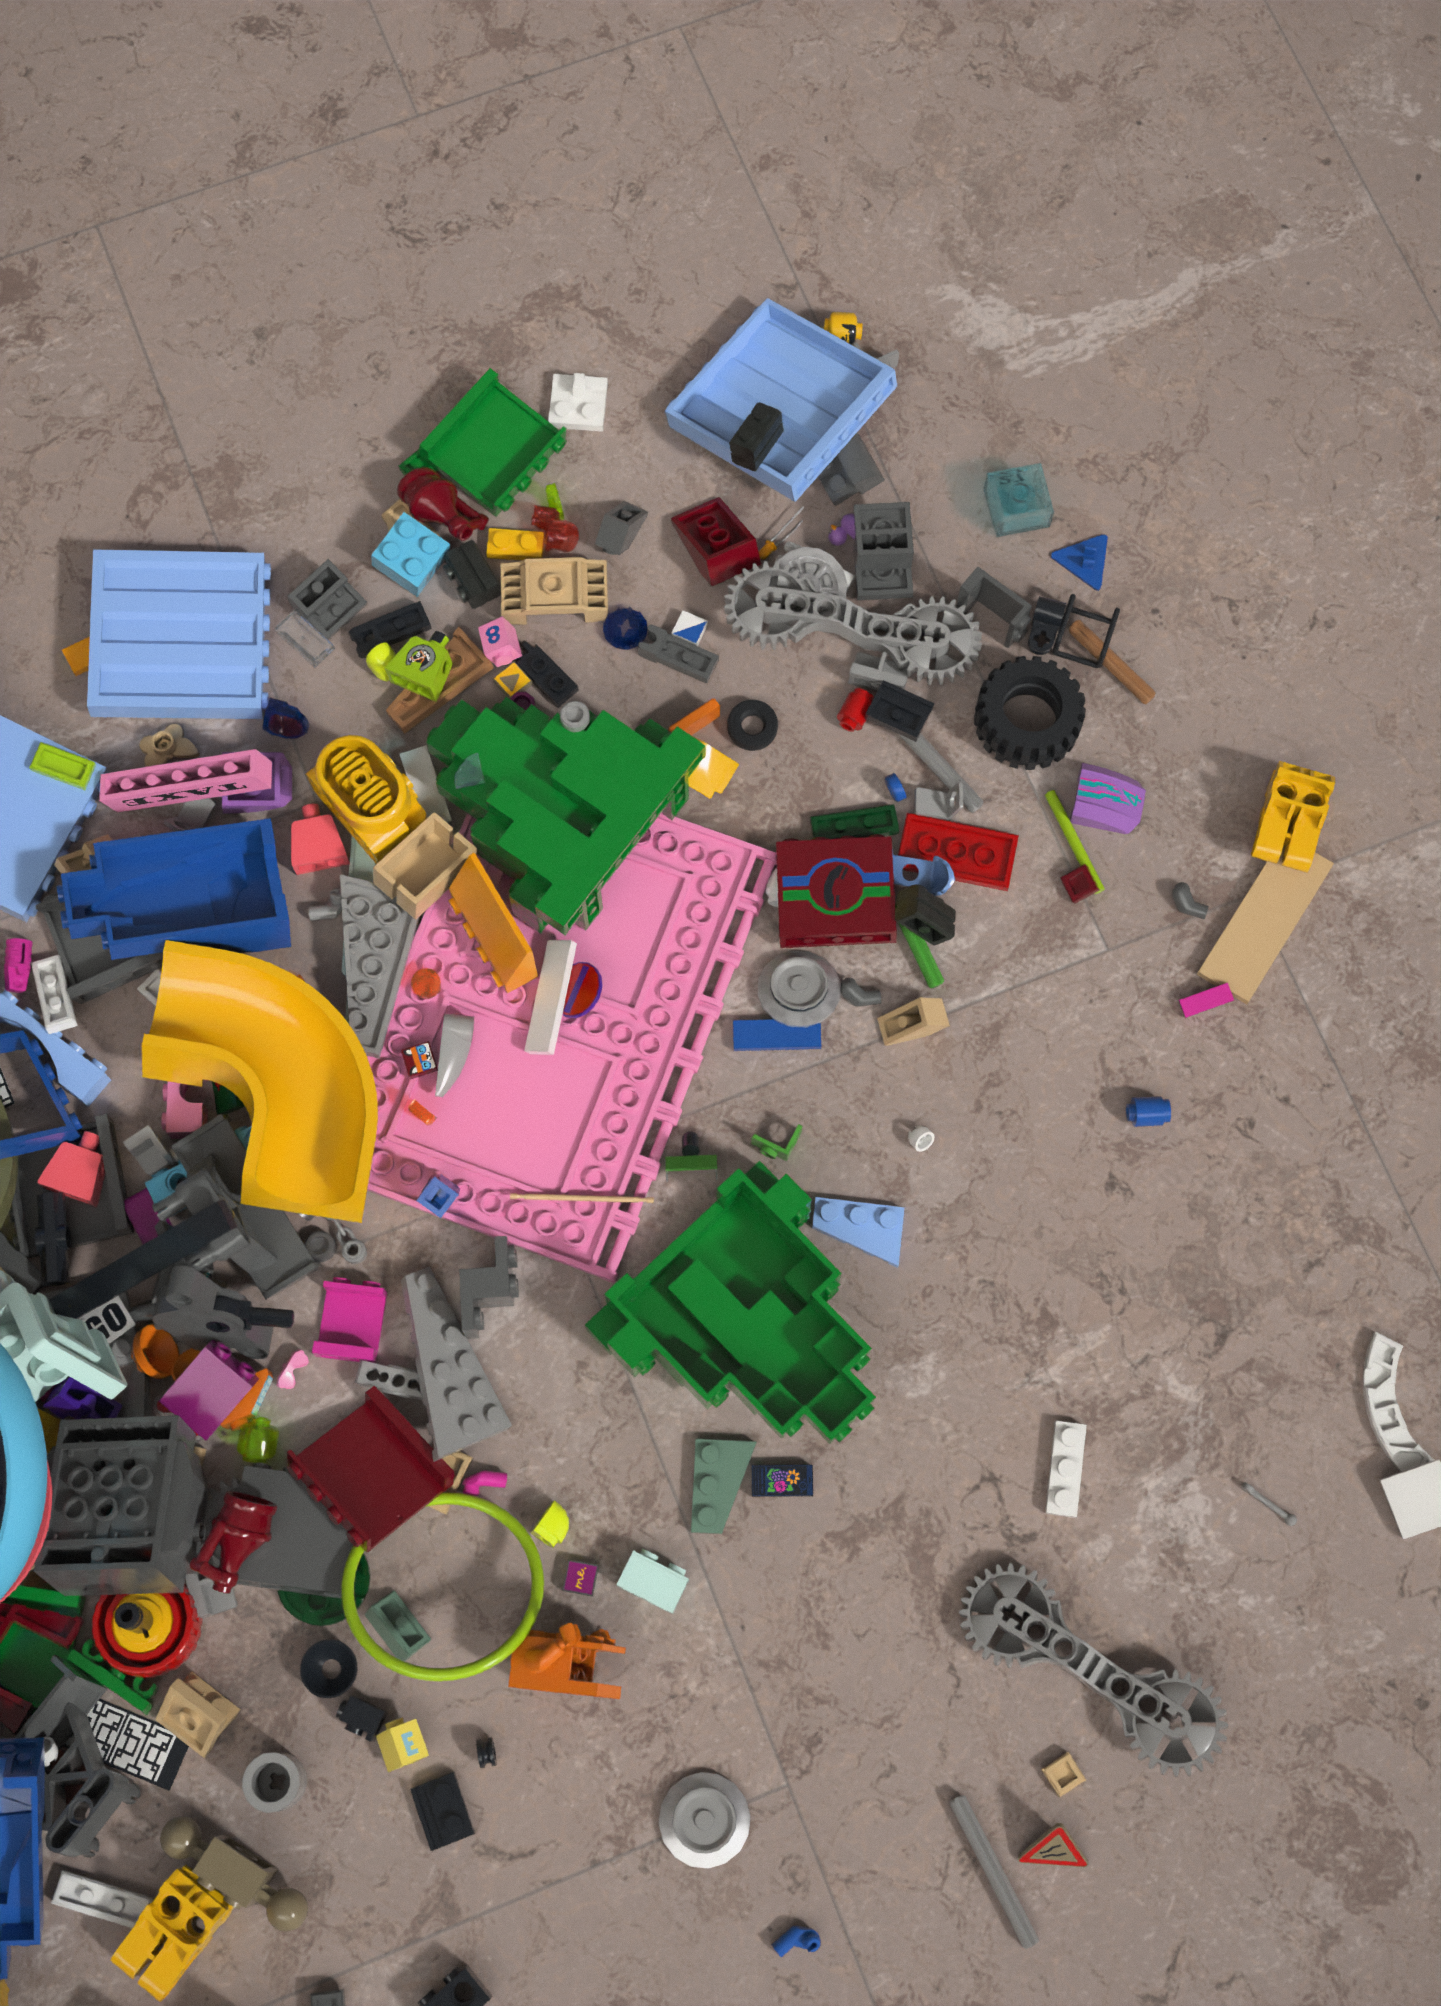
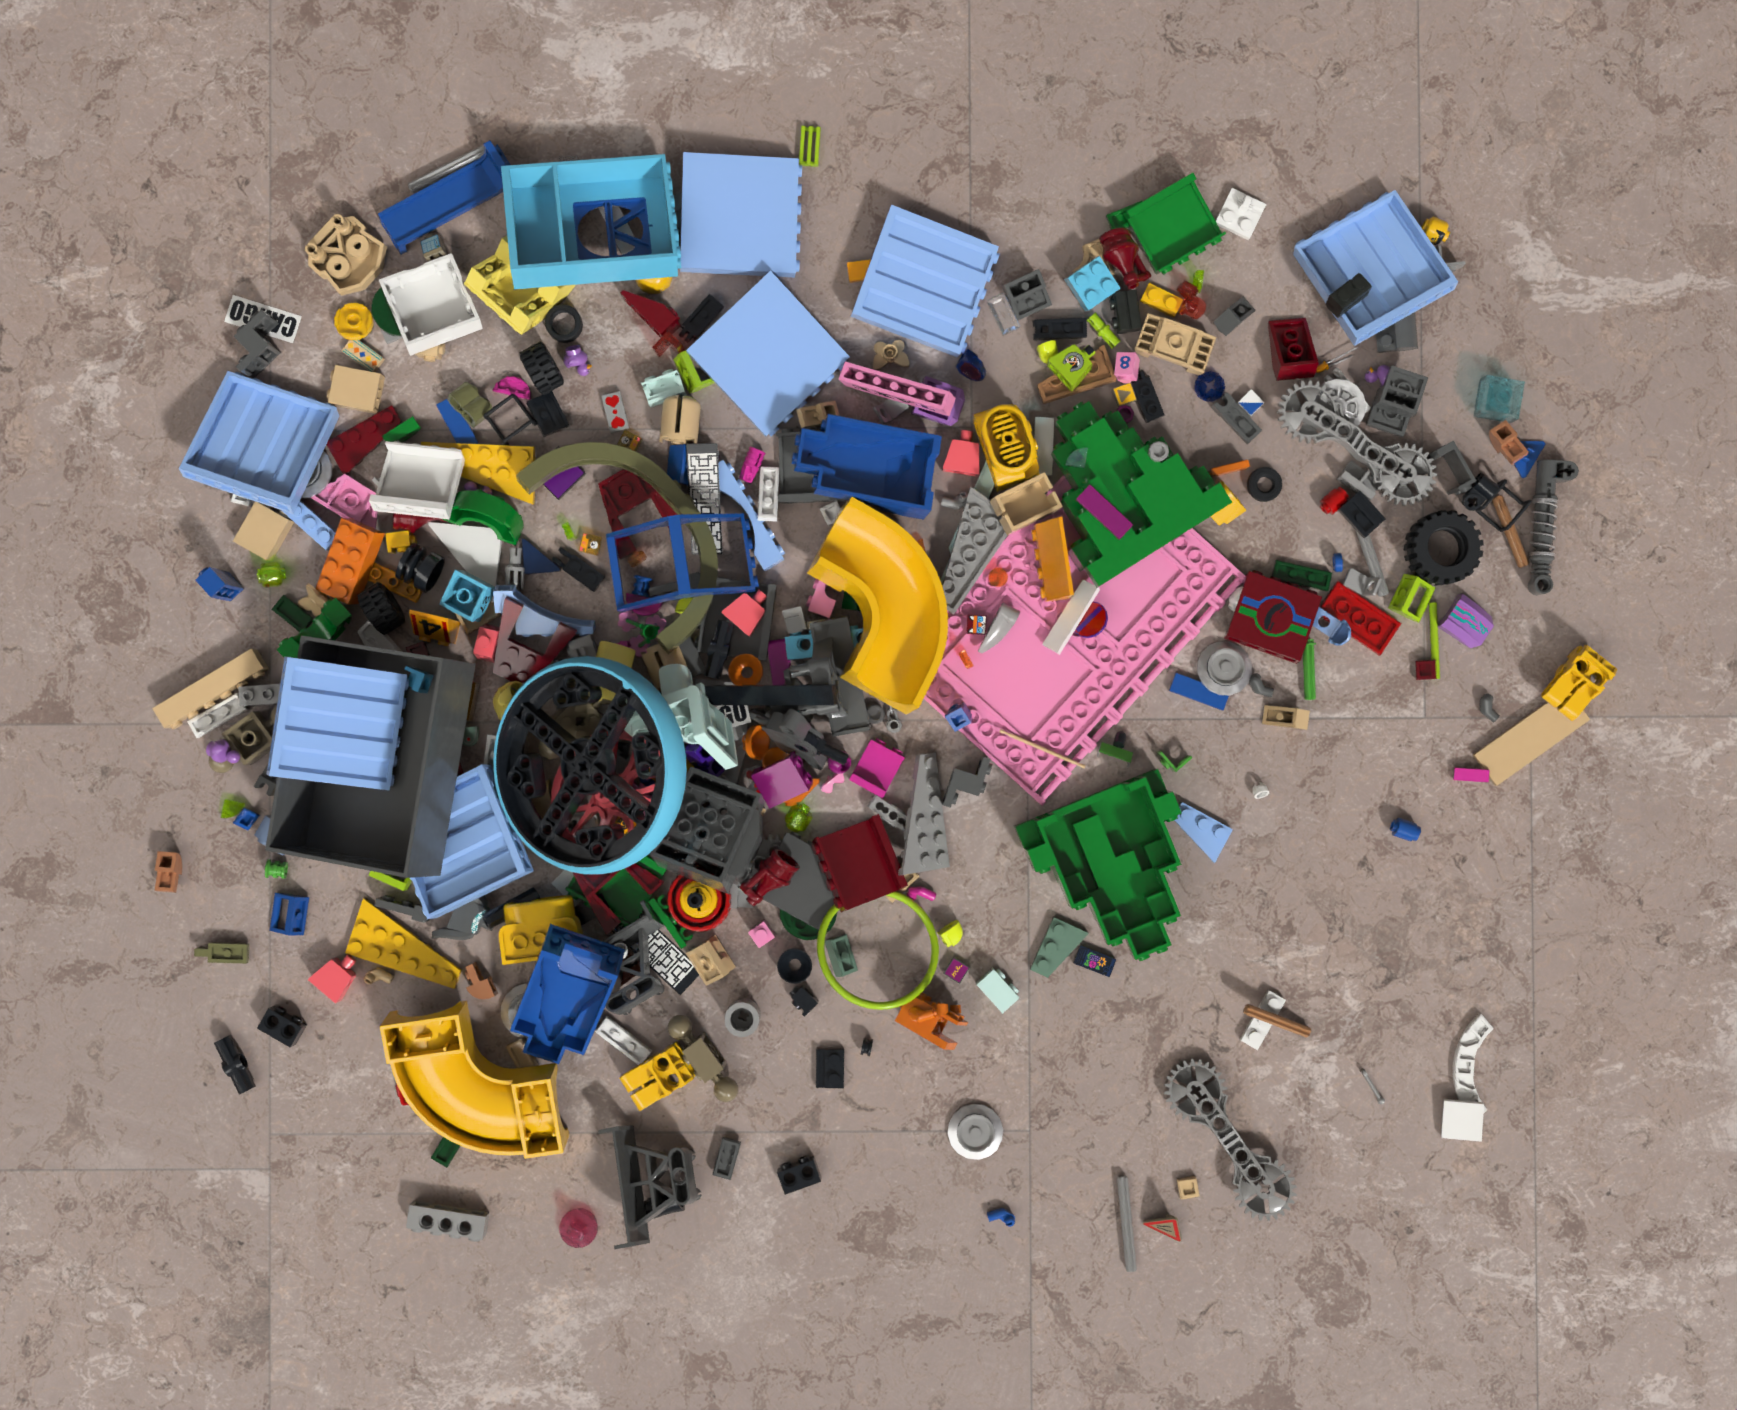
camera: 25 degrees right, 15 degrees up
(62, 766) = (823, 347): lime tile -> none
(96, 1244) = (739, 663): none -> orange piece
(261, 1639) = (762, 933): none -> bright pink brick
(291, 1339) = (838, 768): none -> magenta piece
(401, 1744) = (821, 1024): light yellow brick -> none
(451, 609) = (1103, 330): none -> lime pin
(530, 823) = (1104, 512): none -> magenta tile
(925, 914) = (1322, 655): pearl dark grey brick -> none
(1006, 796) = (1405, 593): none -> lime tile
(1053, 551) = (1505, 441): none -> nougat brick
(1085, 1458) = (1277, 1020): none -> medium nougat axle
(1139, 606) = (1543, 527): none -> dark grey piece

